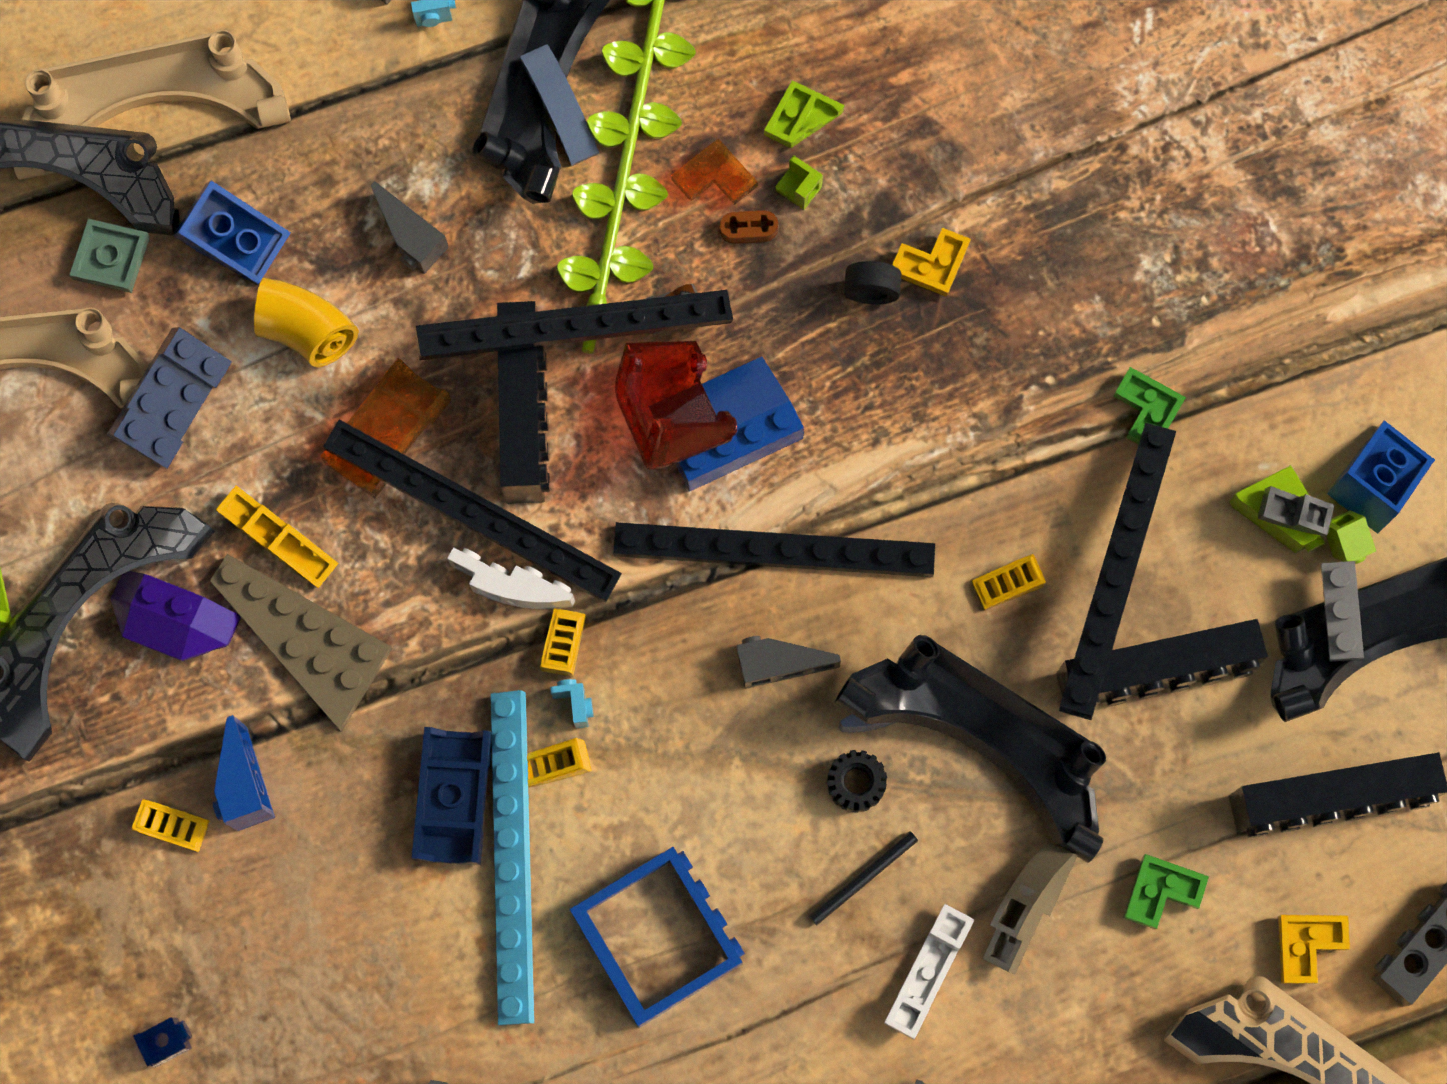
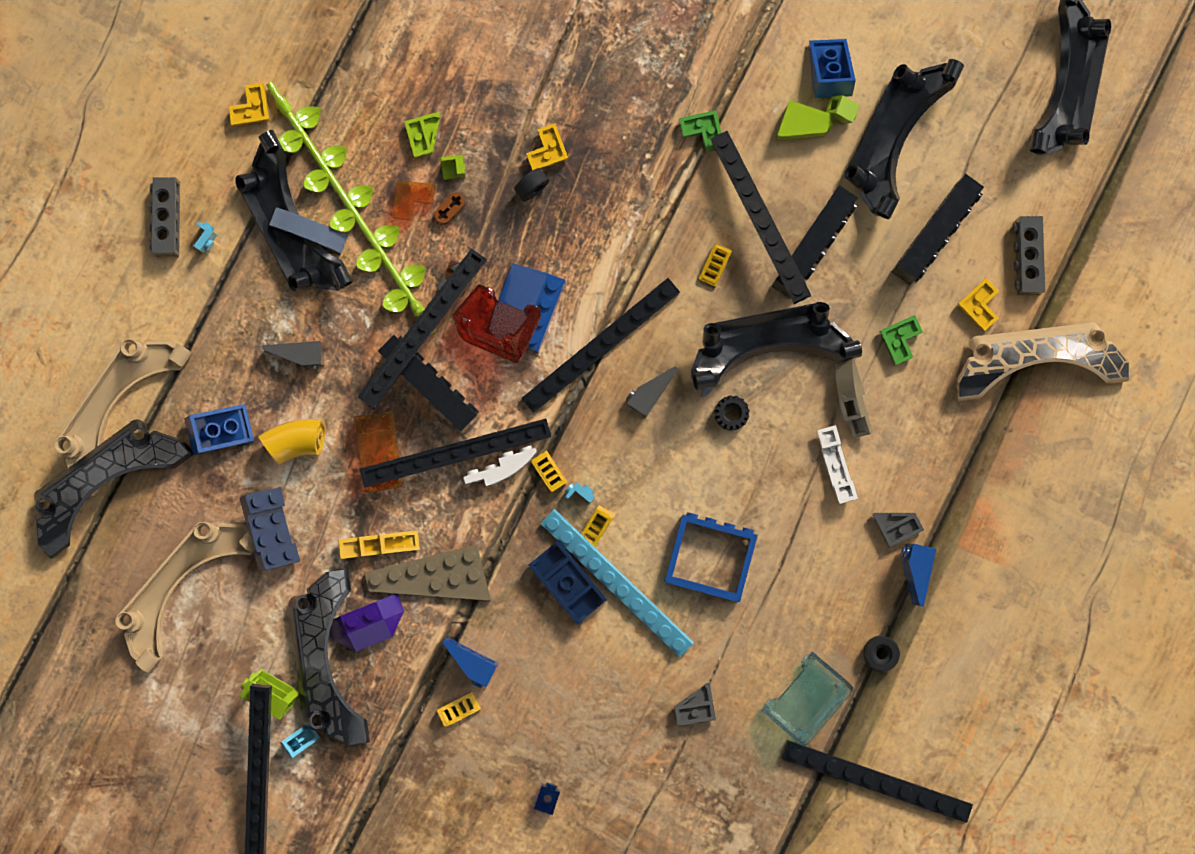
camera: 45 degrees left, 10 degrees up
(109, 255) = (173, 491): sand green plate -> none
(863, 878) = (772, 451): black bar -> none
(1296, 512) = (811, 120): dark grey slope -> none
(1342, 611) = (868, 146): light grey plate -> none

